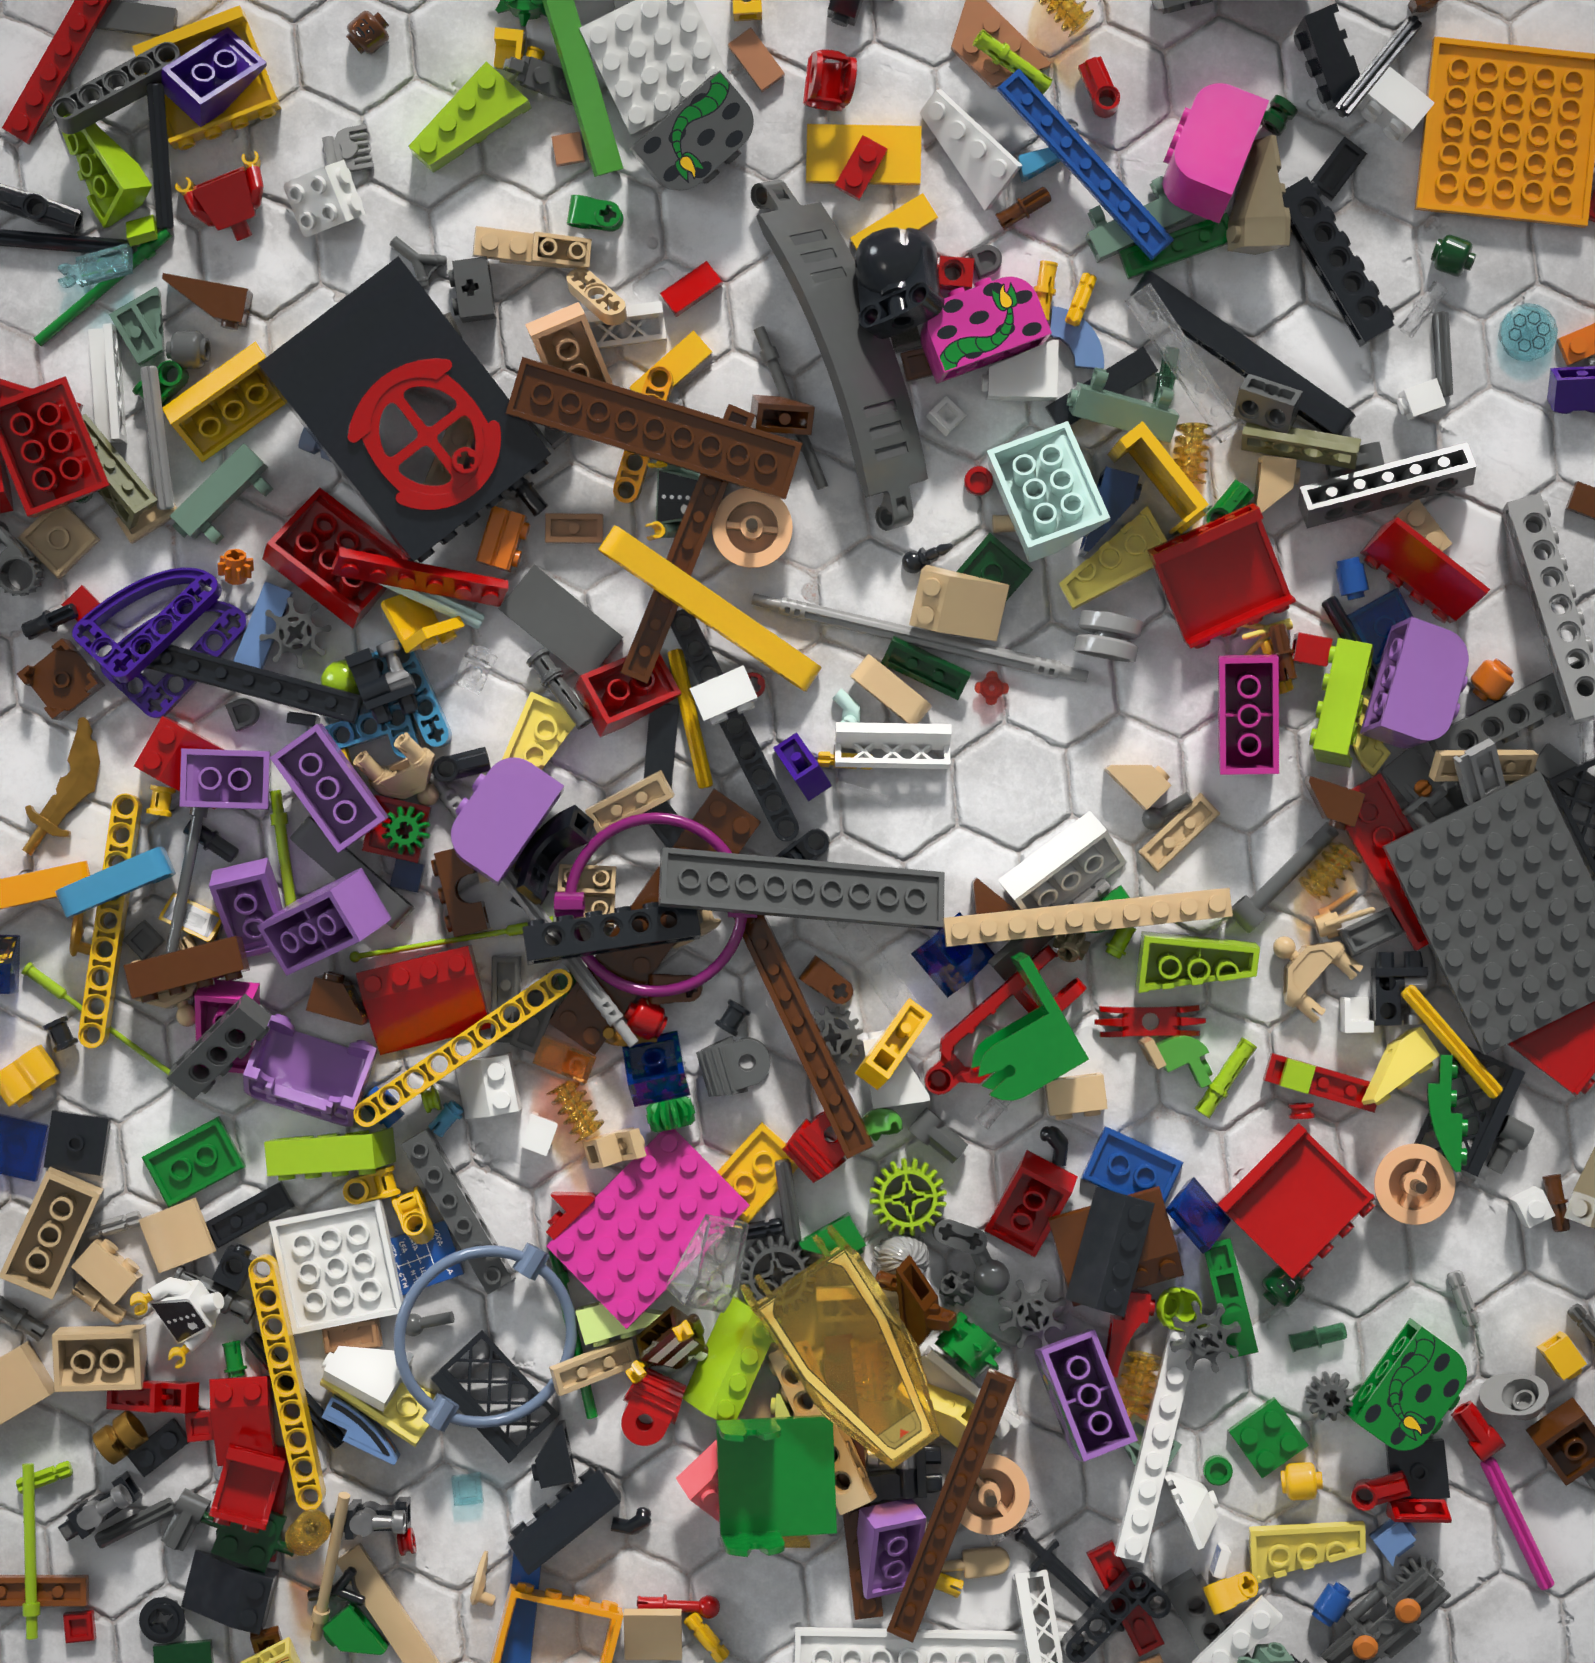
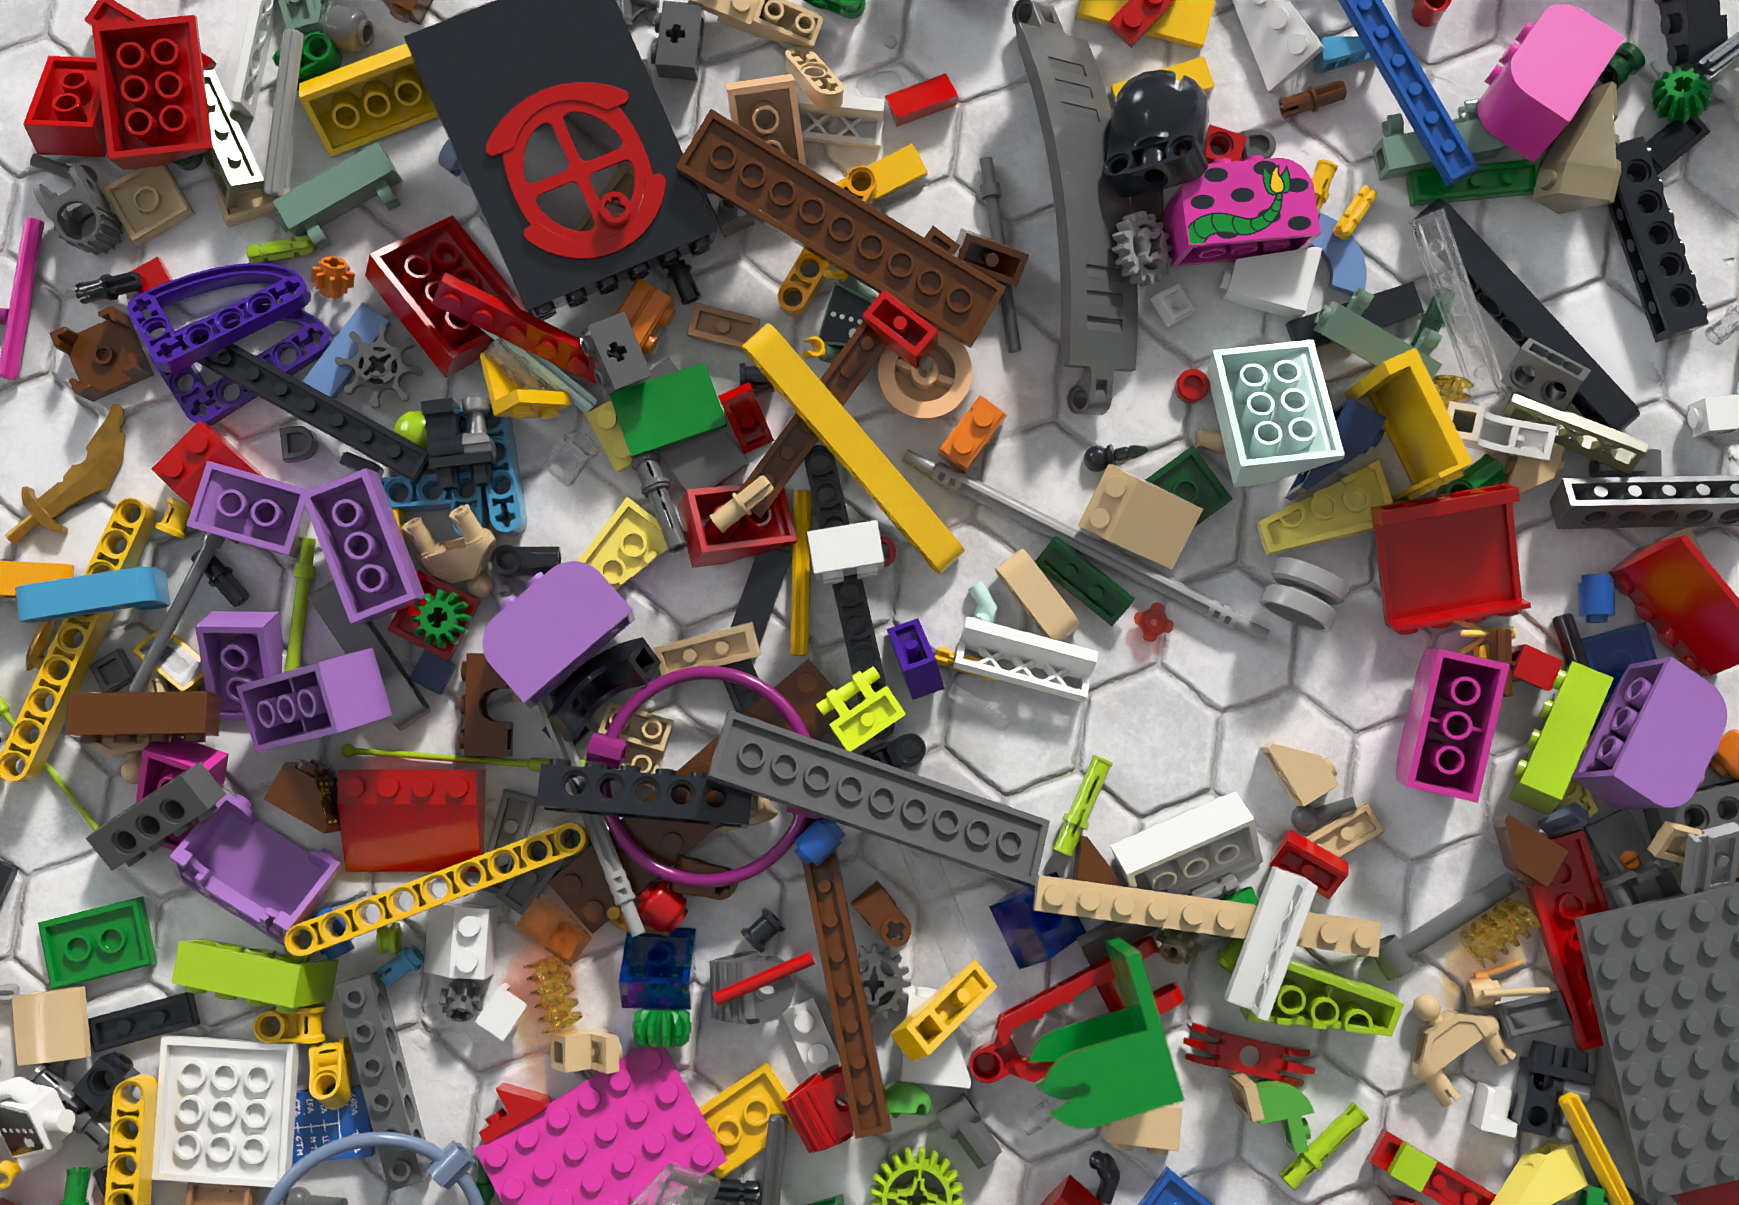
camera: 15 degrees right, 5 degrees down
(183, 553) = (280, 249): none -> lime axle
(412, 607) = (514, 366): none -> clear pin
(491, 561) = (617, 336): none -> dark grey brick
(503, 1132) = (461, 999): none -> dark grey gear
(506, 641) = (608, 431): none -> light yellow plate
(546, 610) = (668, 410): none -> green tile
(608, 567) = (754, 377): none -> black bush
(613, 601) = (746, 418): none -> red slope
(629, 676) = (742, 503): none -> tan axle
(723, 499) = (901, 328): none -> red slope
(744, 1053) = (763, 979): none -> red bar
(760, 934) = (818, 841): none -> blue brick
(775, 824) = (868, 717): none -> neon yellow plate
(793, 1092) = (811, 1036): none -> white plate
(804, 568) = (972, 434): none -> orange brick
(908, 378) = (1142, 248): none -> light grey gear
(968, 853) = (1082, 806): none -> lime pin
(1139, 924) = (1270, 942): none -> white fence
(1163, 855) = (1310, 861): none -> red slope
(1235, 463) = (1501, 434): none -> white arch
(1333, 132) = (1681, 95): none -> green gear
(1362, 768) = (1564, 820): none -> sand blue piece

